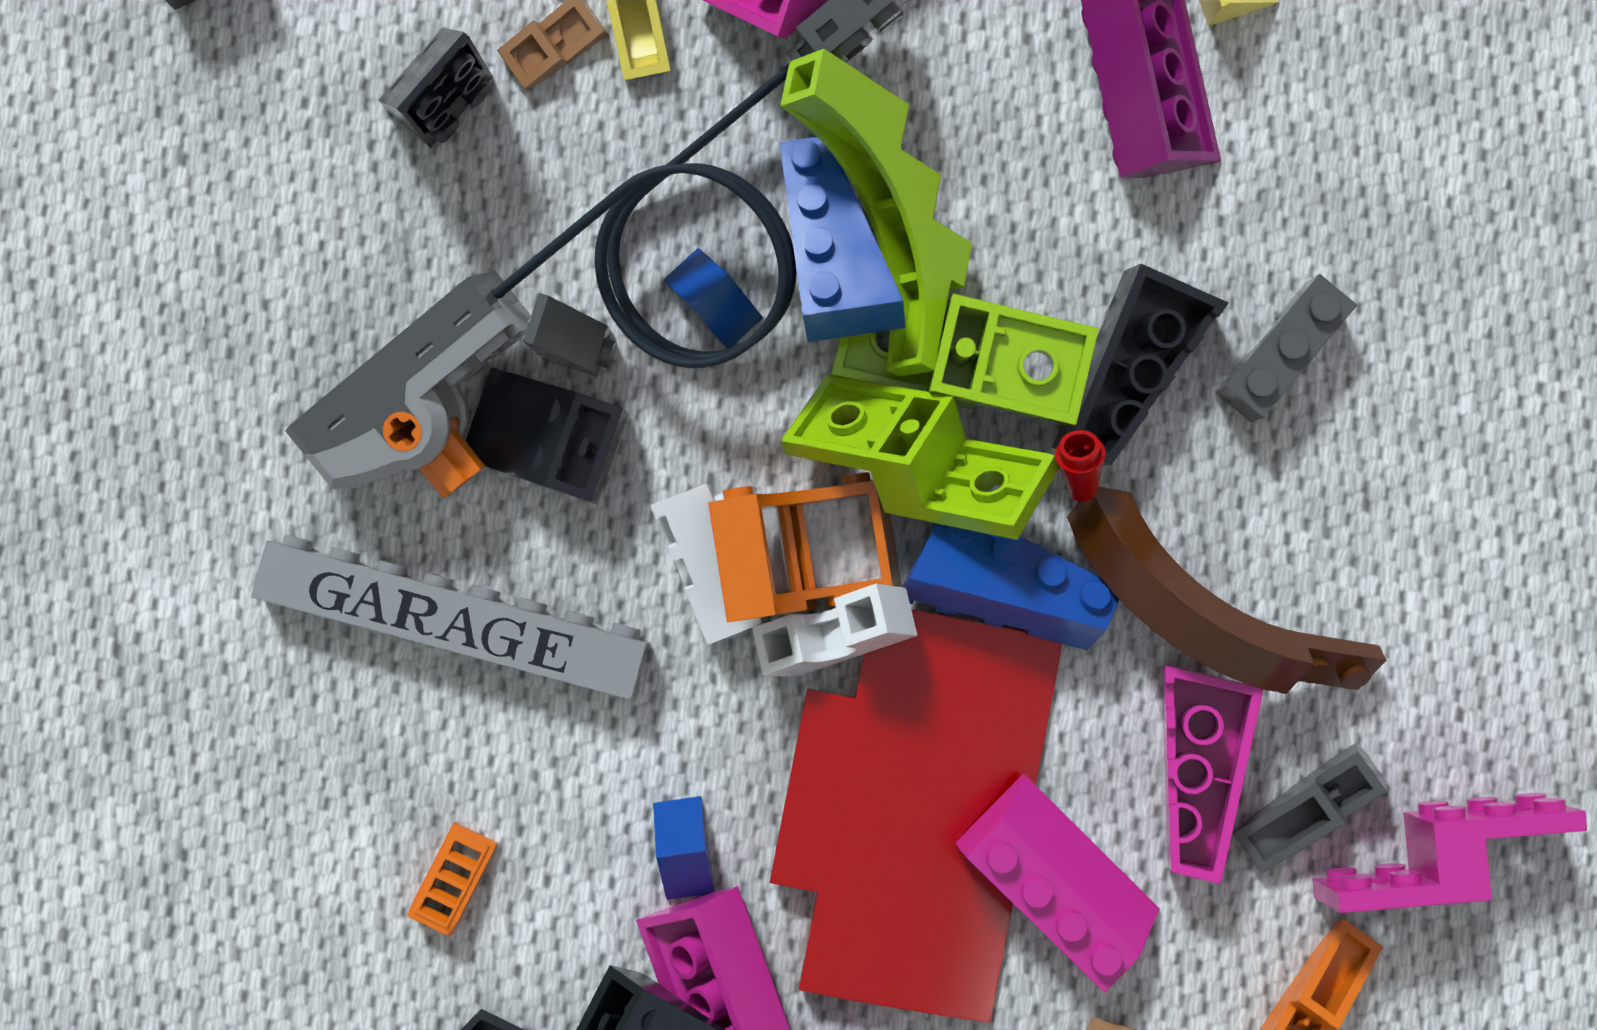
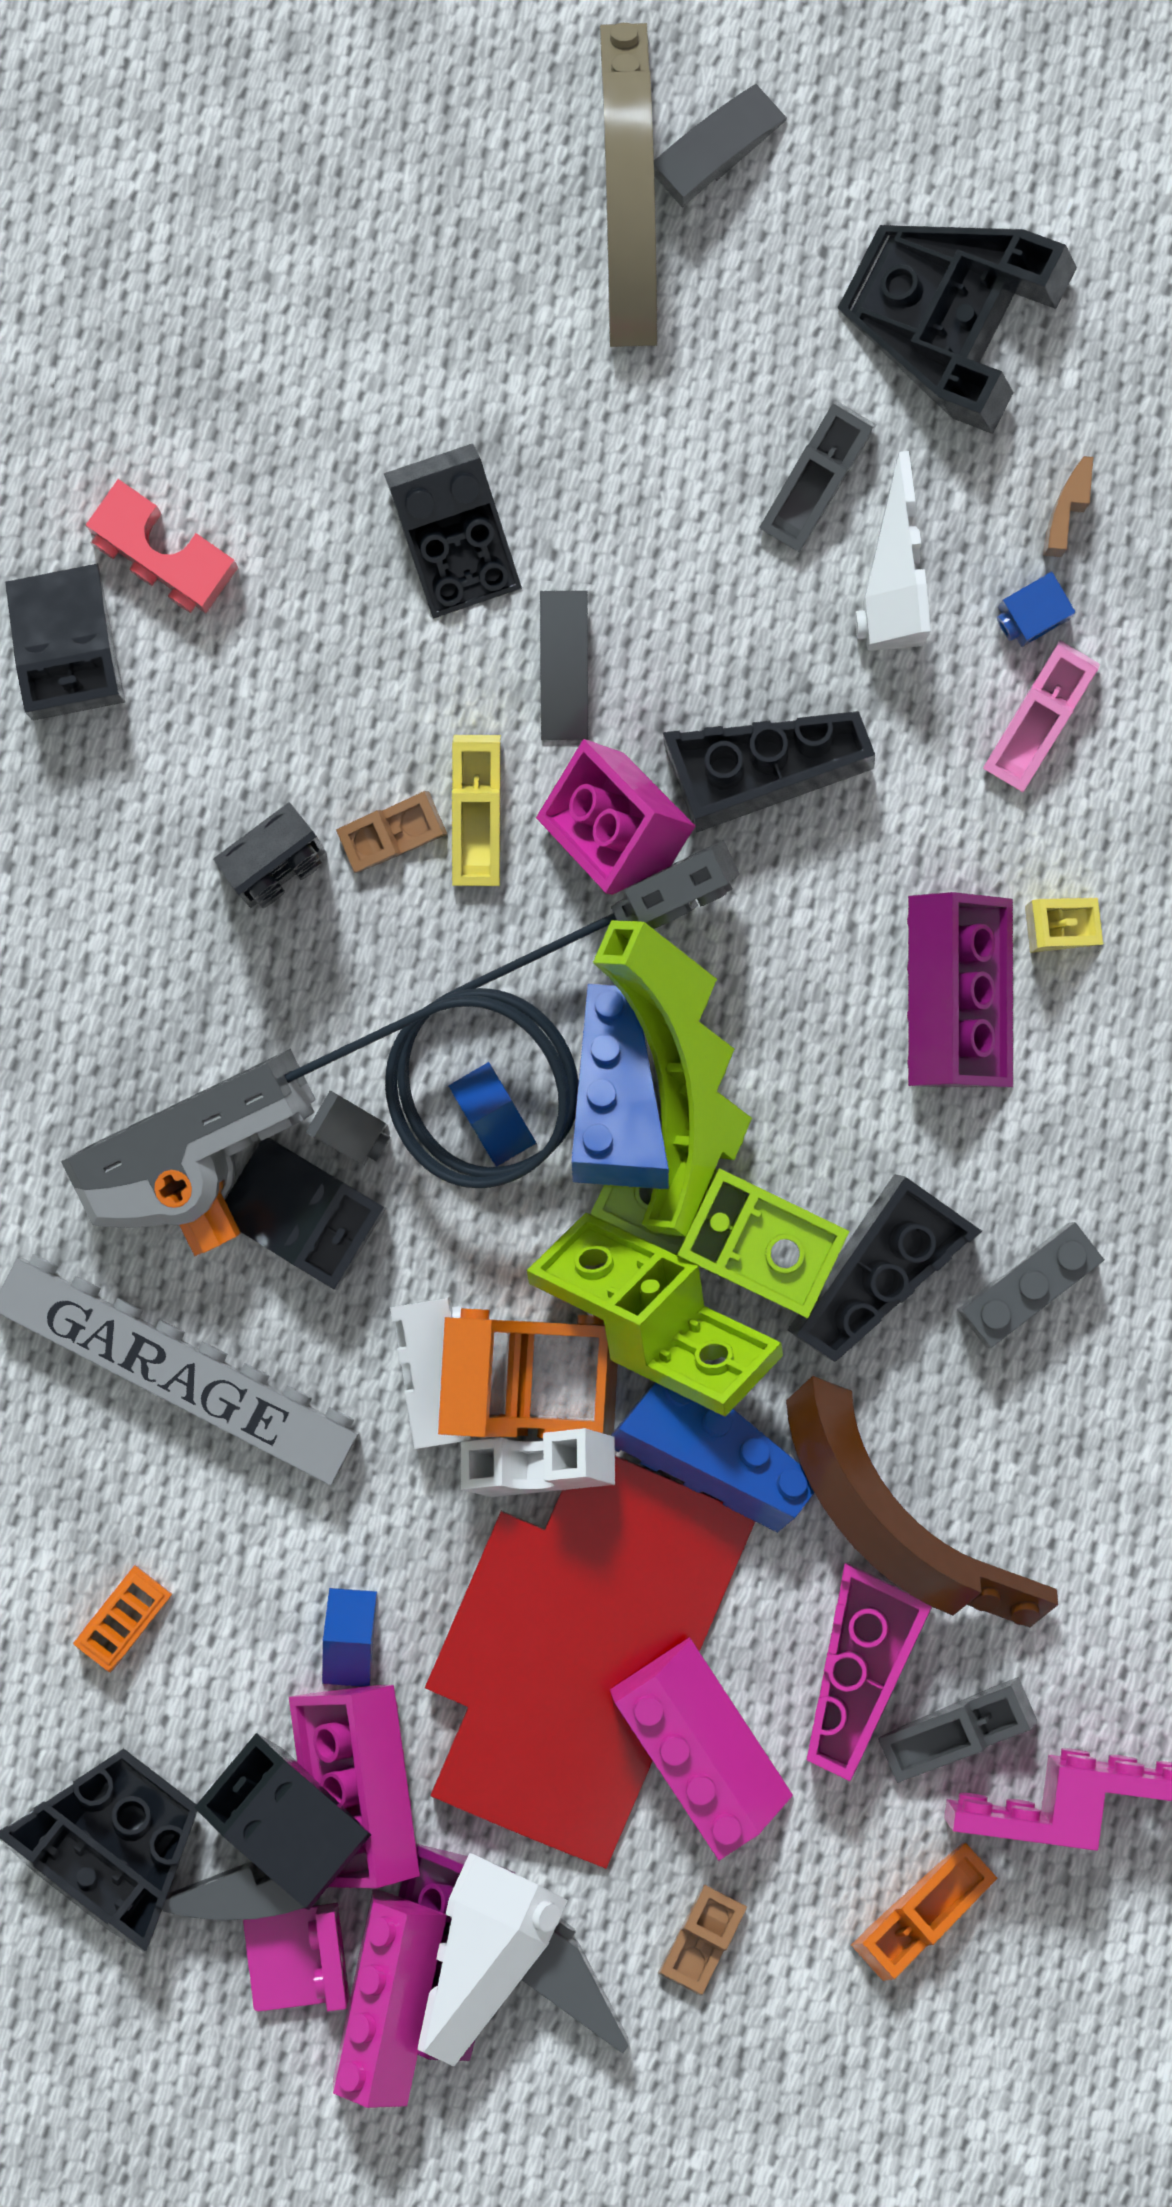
camera: 10 degrees right, 0 degrees up
(1081, 463) = (804, 1355): red cone -> none

